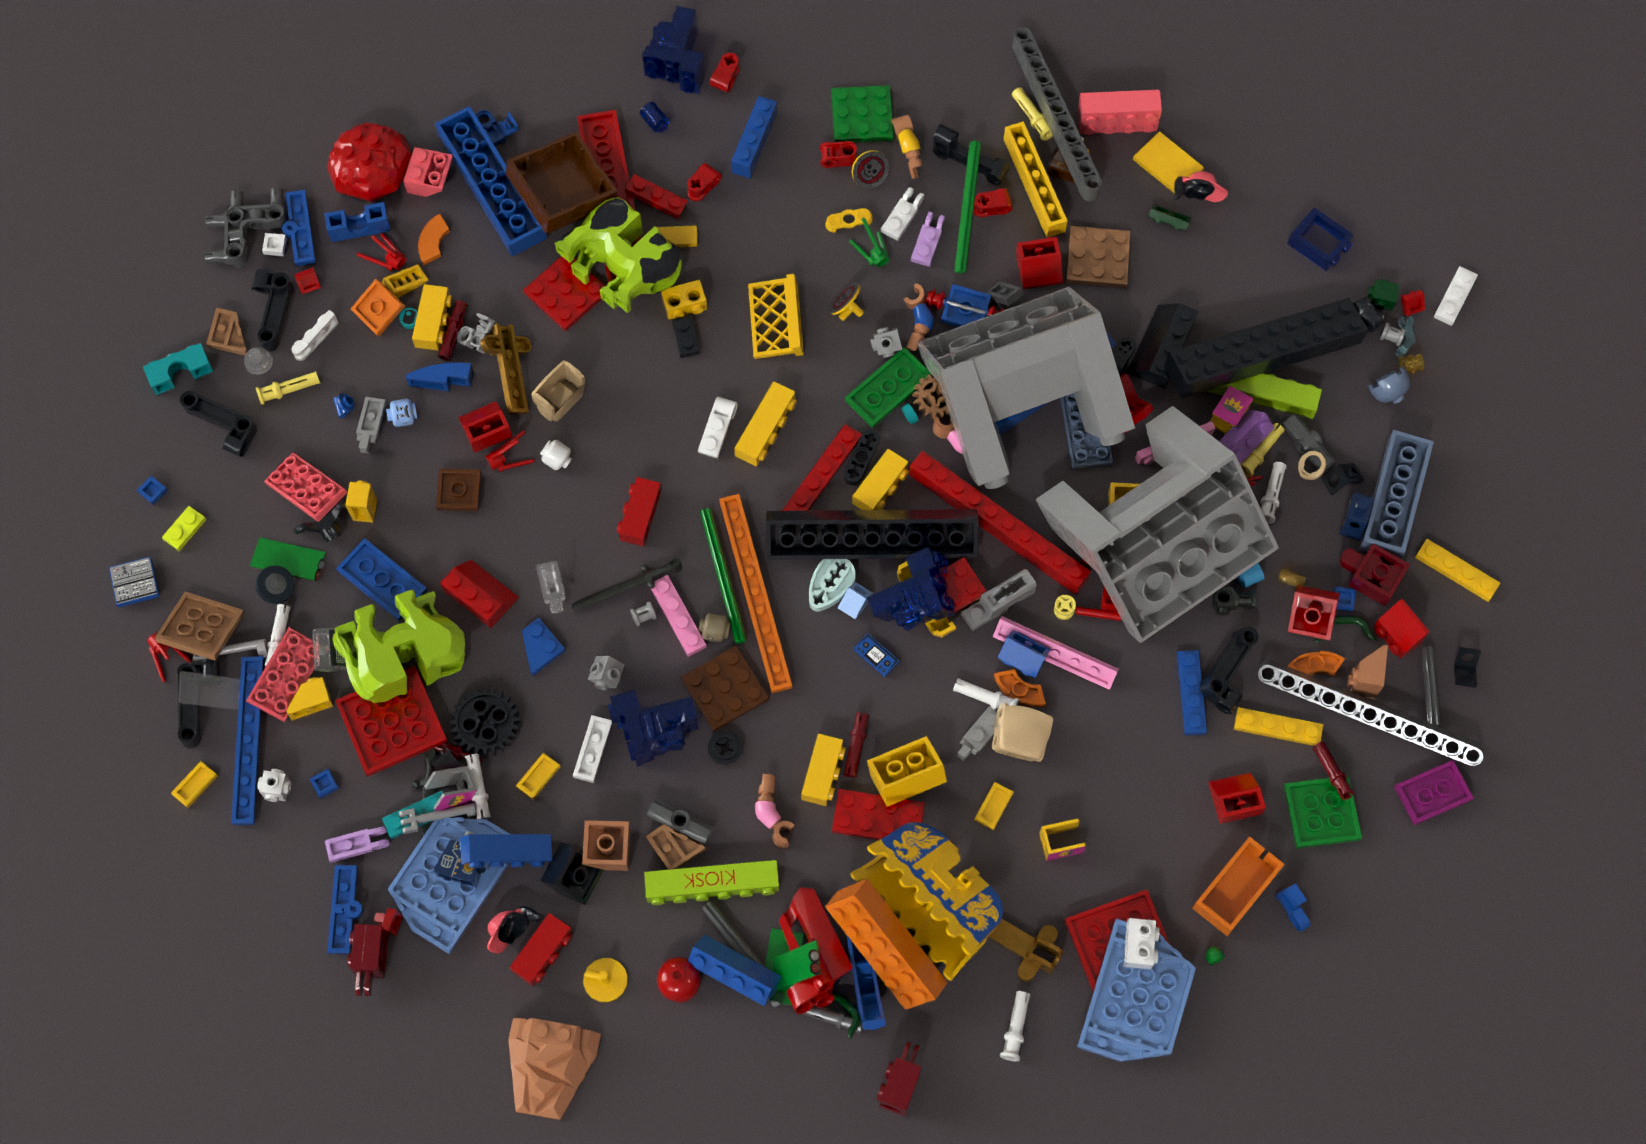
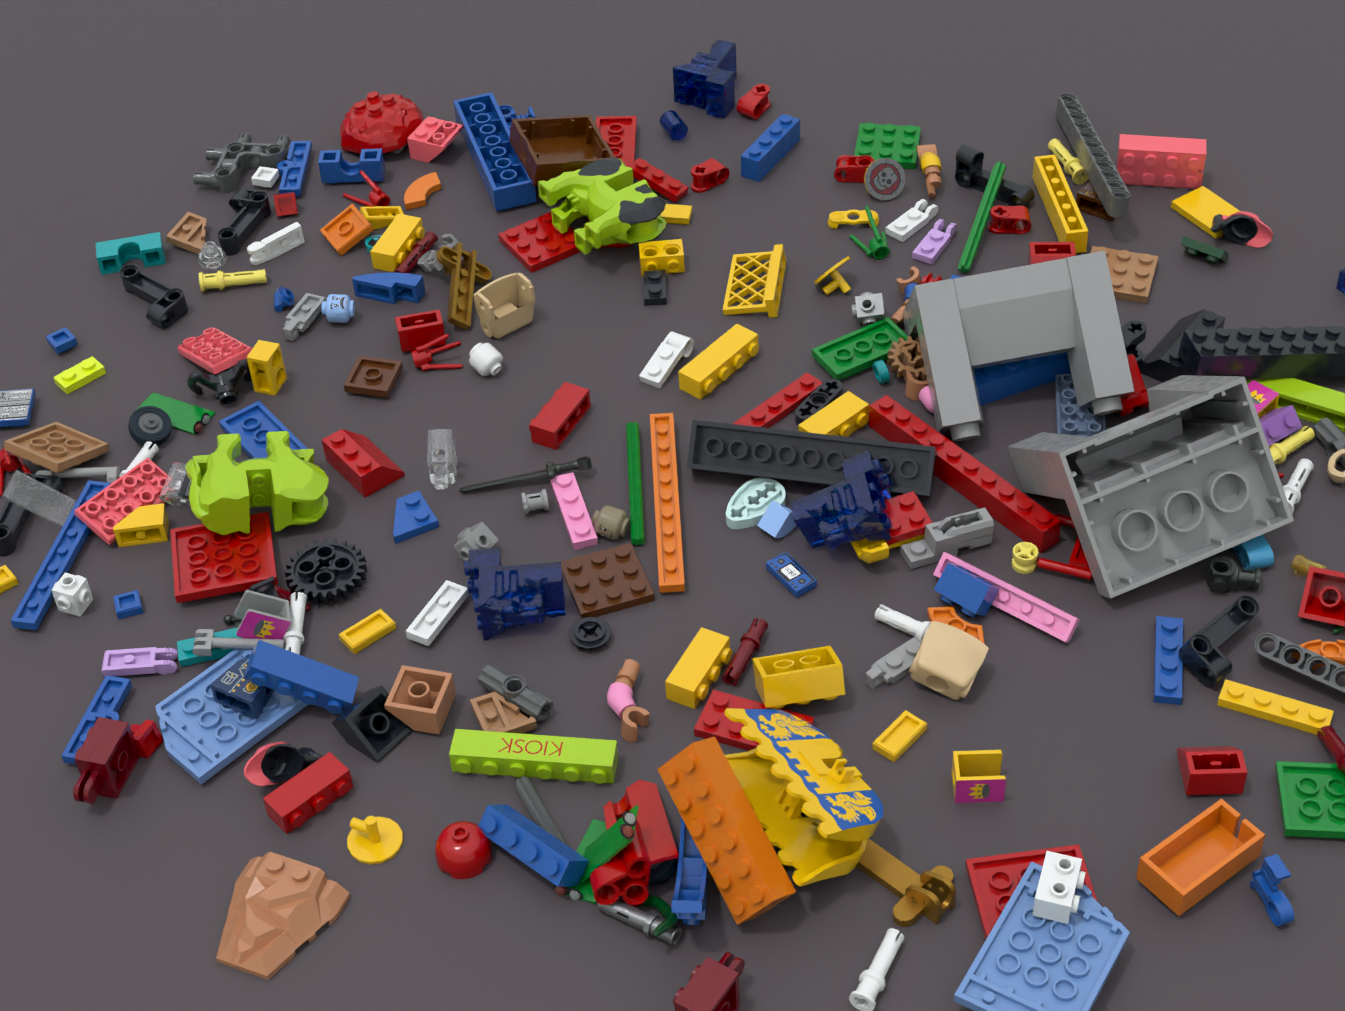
camera: 15 degrees right, 25 degrees down
(1214, 955) = (1159, 934): green hinge -> none

